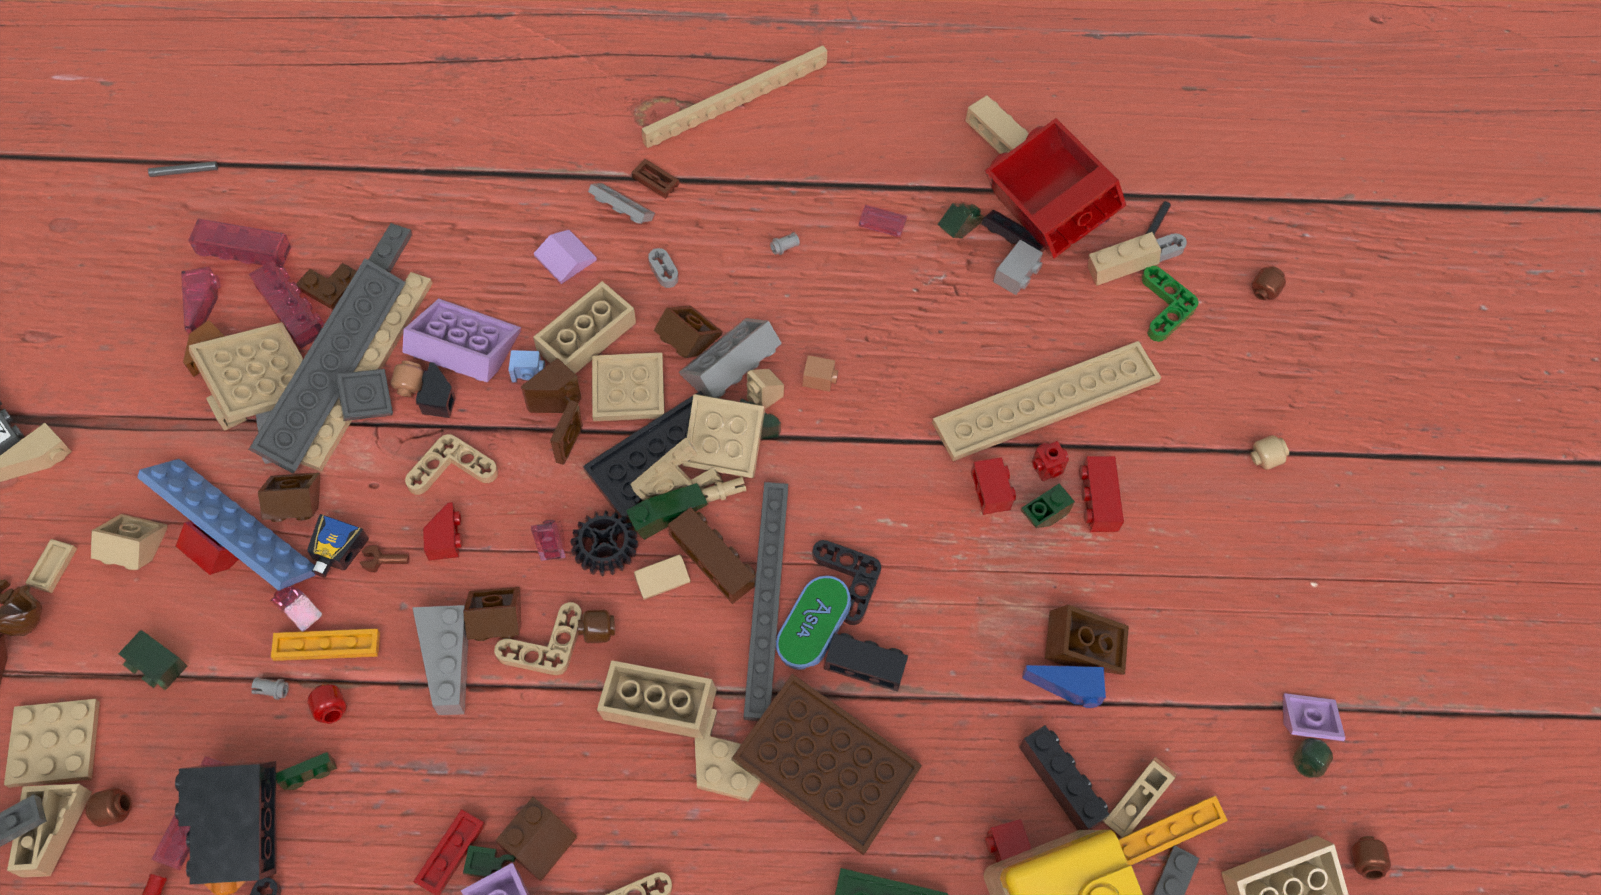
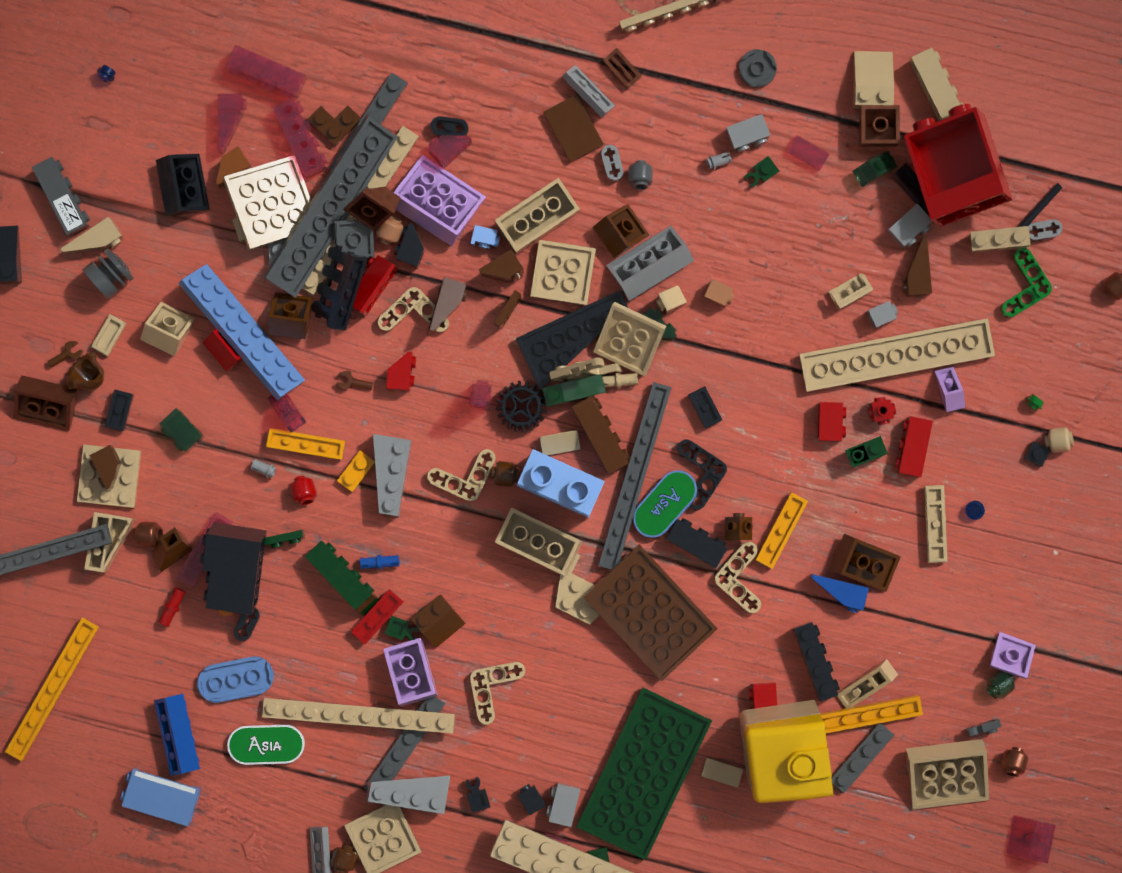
camera: 20 degrees right, 25 degrees up
(43, 721) = (107, 465): none -> reddish brown slope
(44, 486) = (108, 273): none -> dark grey wheel
(45, 279) = (106, 73): none -> clear blue plate
(65, 653) = (119, 410): none -> black plate
(140, 819) = (170, 549): none -> reddish brown slope
(142, 376) = (182, 184): none -> black slope
(334, 544) = (319, 365): torso -> none
(356, 442) = (347, 288): none -> black fence
(378, 344) = (373, 206): none -> copper slope
(392, 441) = (373, 283): none -> red slope
(393, 806) = (342, 578): none -> dark green wedge
(398, 667) = (356, 471): none -> light orange plate
(444, 777) = (379, 562): none -> blue pin
(466, 264) = (450, 126): none -> black plate
(468, 283) = (448, 148): none -> clear pink slope
(489, 441) = (448, 300): none -> slope
(493, 613) = (430, 445): reddish brown slope -> none
(564, 255) = (532, 133): lavender slope -> none
(612, 242) = (573, 128): none -> reddish brown tile
(669, 607) = (560, 483): none -> light blue brick
(698, 271) = (640, 175): none -> dark grey head
(805, 154) = (757, 68): none -> dark grey tile
(810, 210) = (747, 133): none -> light grey brick
(835, 500) = (705, 407): none -> black plate
(837, 245) = (763, 170): none -> dark green plate
(915, 630) = (738, 527): none -> reddish brown brick
(926, 702) = (733, 582): none -> tan beam
(934, 145) = (873, 78): none -> tan slope
(954, 177) = (879, 126): none -> copper slope
(970, 625) = (781, 530): none -> light orange plate
(973, 345) = (850, 291): none -> tan hinge
(1016, 360) = (882, 314): none -> light grey brick
(1046, 316) = (918, 276): none -> reddish brown slope
(1123, 423) = (950, 389): none -> lavender slope
(1158, 578) = (935, 523): none -> tan plate
(1199, 552) = (974, 510): none -> clear blue plate
(1225, 419) = (1035, 402): none -> green plate
(1248, 475) = (1037, 454): none -> black plate
(1320, 818) = (988, 727): none -> dark grey plate

